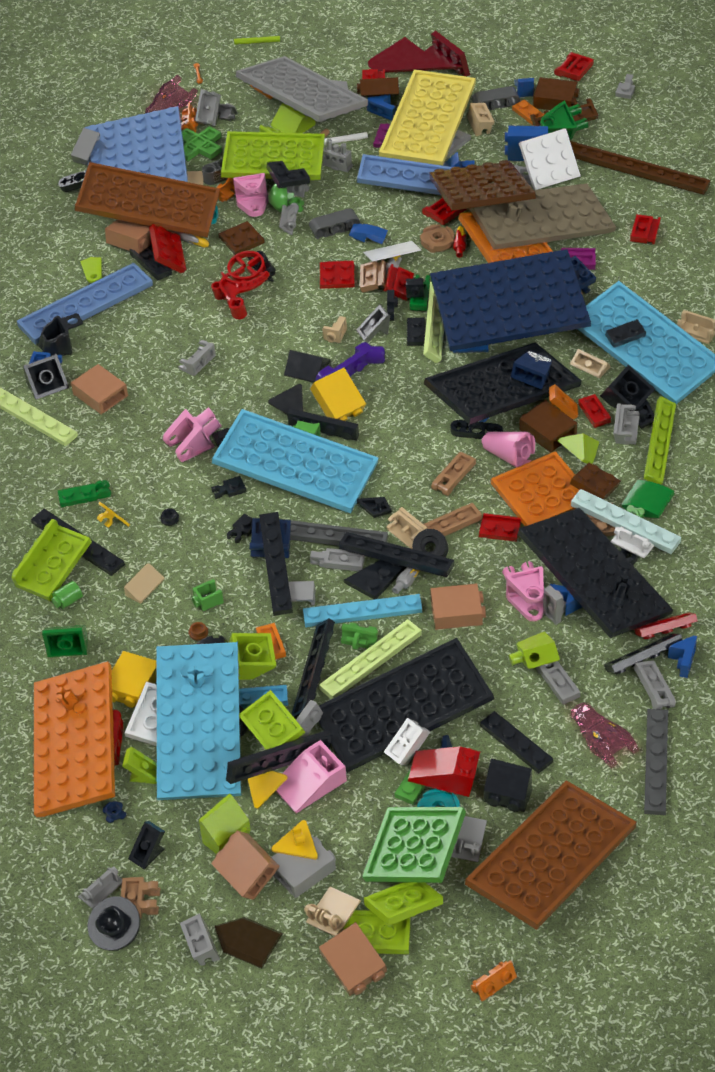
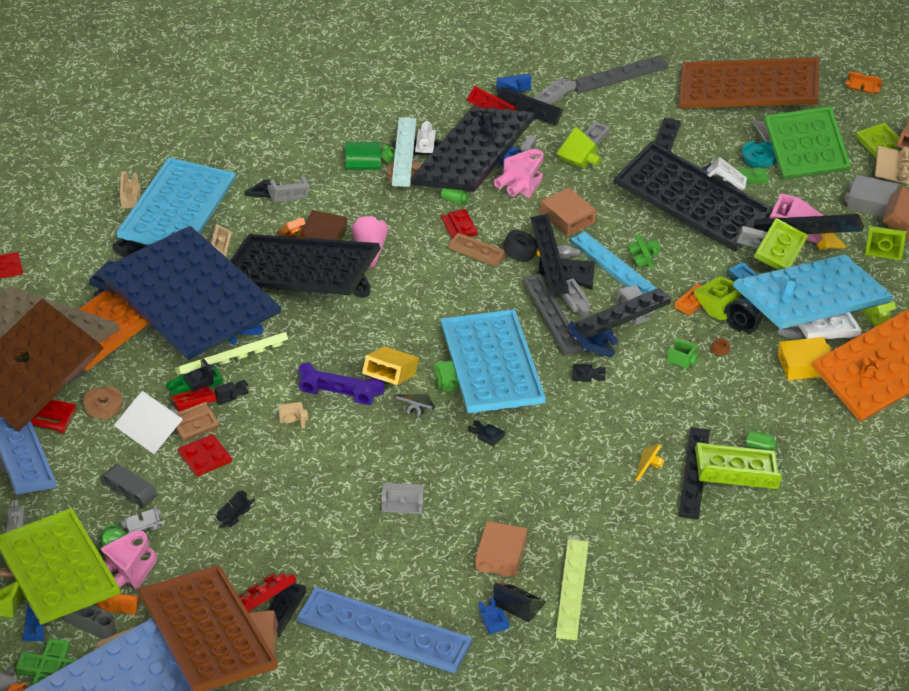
camera: 125 degrees left, 5 degrees down
(56, 337) = (459, 610): black piece -> none
(65, 641) = (808, 410): green slope -> none
(84, 493) = (637, 497): green hinge -> none
(92, 268) = (324, 656): lime piece -> none
(143, 583) = (702, 405): tan slope -> none
(169, 517) = (615, 423): black plate -> none
(191, 432) = (511, 445): bright pink piece -> none
(230, 288) = (289, 518): red piece -> none
(231, 487) = (551, 403): black plate -> none
(241, 238) = (193, 554): reddish brown plate -> none
(285, 177) = (99, 523): black plate -> none
(297, 843) = (863, 195): yellow piece -> none
(304, 365) = (352, 418): black slope -> none
(313, 666) = (699, 263): black plate -> none
(327, 425) = (427, 365): black plate -> none
(361, 231) = (128, 454): blue slope -> none
(370, 659) = (666, 239): yellowish green plate -> none
(375, 322) = (266, 384): flat silver slope -> none
(375, 506) = (494, 301): black piece -> none
(403, 901) = (860, 132): lime plate -> none
(405, 526) = (507, 270): tan hinge -> none
(415, 331) = (251, 366): black plate -> none
(445, 769) = (731, 148): red slope -> none
(453, 473) = (421, 270): medium nougat plate -> none
(460, 241) = (100, 382): red piece -> none
(508, 785) = (714, 122): black slope -> none
(532, 369) = (271, 246): dark blue torso -> none
(537, 489) = (405, 211): orange plate -> none
(581, 446) = (334, 203): lime slope -> none
(585, 255) = (74, 293): magenta plate -> none
(594, 410) = (280, 216): red plate -> none
(595, 481) = (370, 184): reddish brown plate -> none
(601, 734) = (621, 102): clear pink animal -> none
(625, 333) = (183, 210): black plate -> none
(627, 389) = (245, 202): black slope -> none
(660, 441) = (289, 169): lime tile -> none

